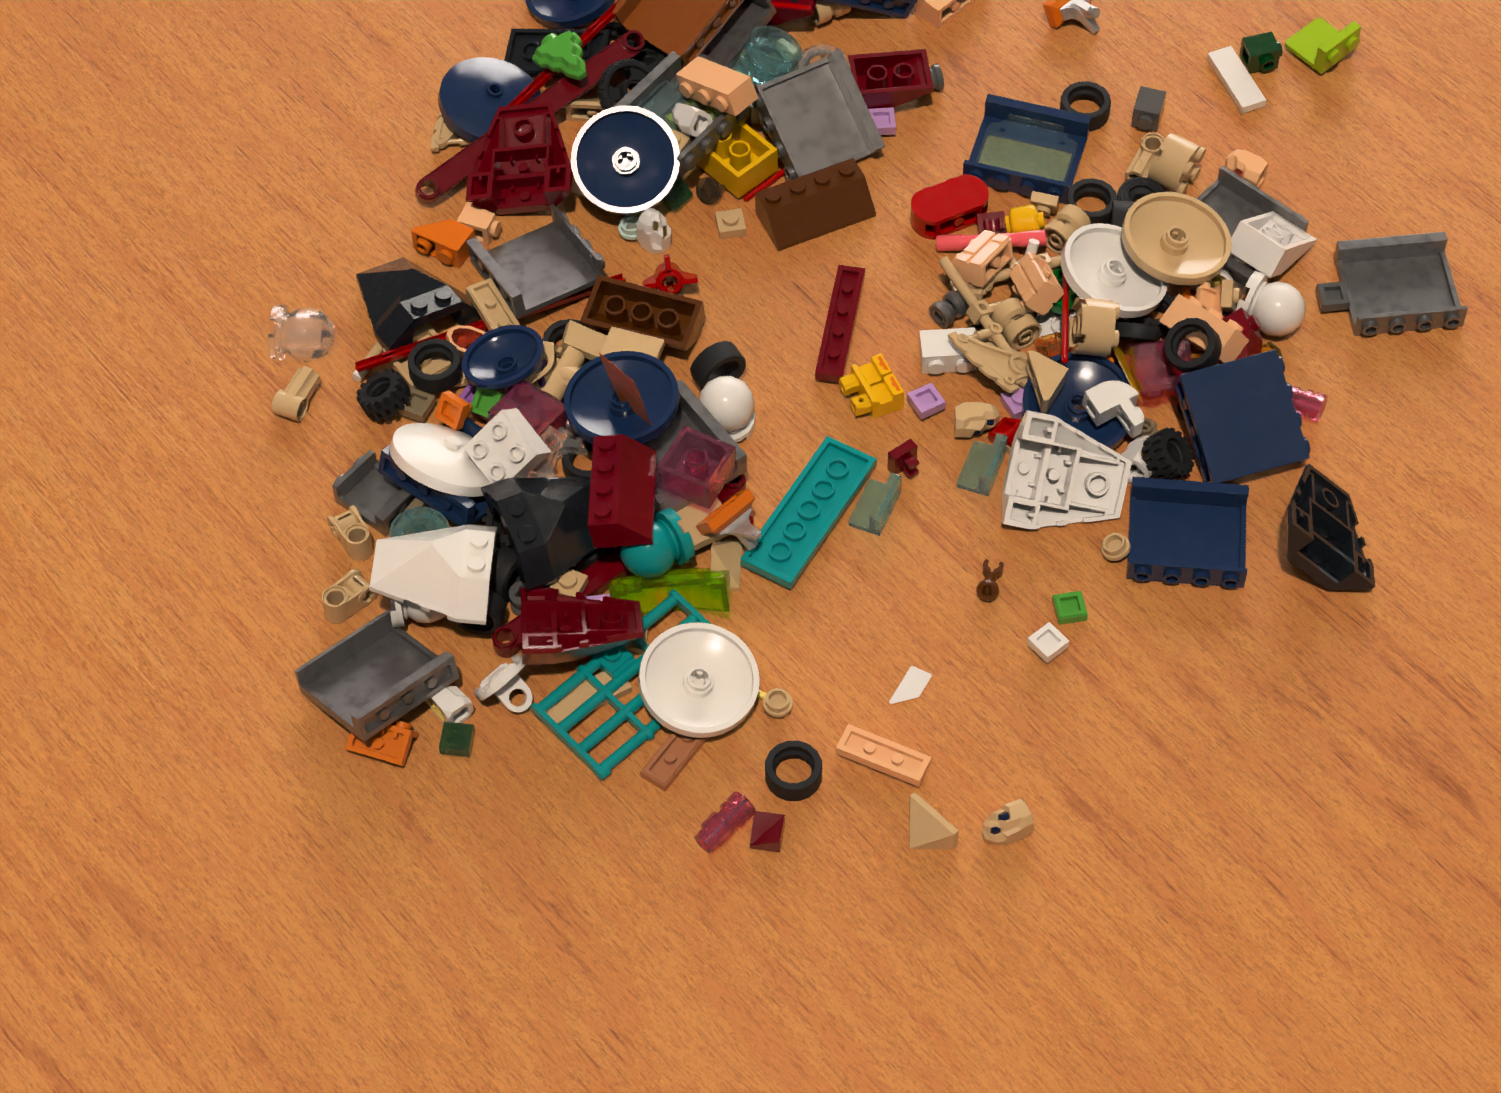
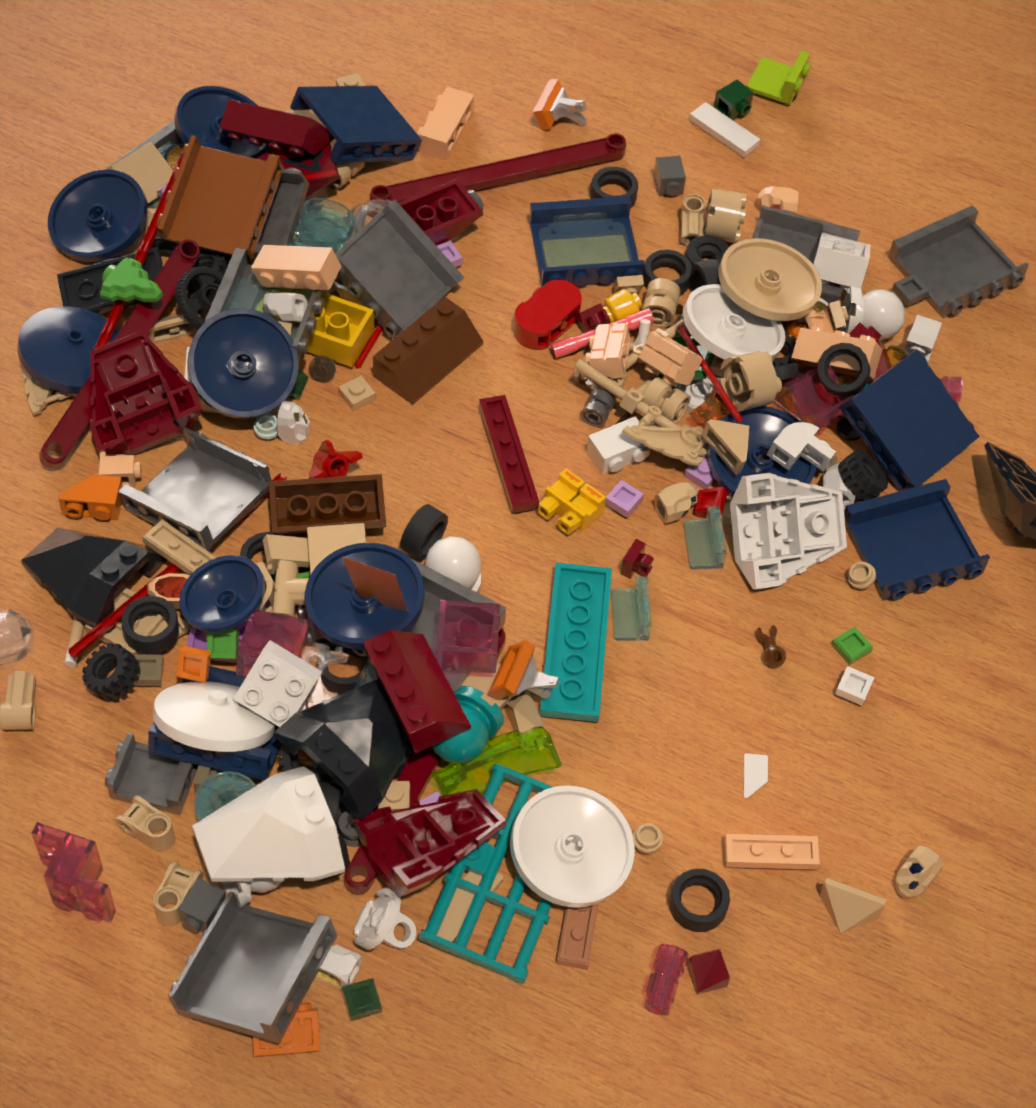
camera: 30 degrees left, 0 degrees up
(269, 547) = (73, 873): none -> clear pink bracket
(360, 611) = (200, 906): none -> dark grey brick
(998, 57) = (511, 170): none -> dark red piece
(1312, 347) = (923, 336): none -> white brick

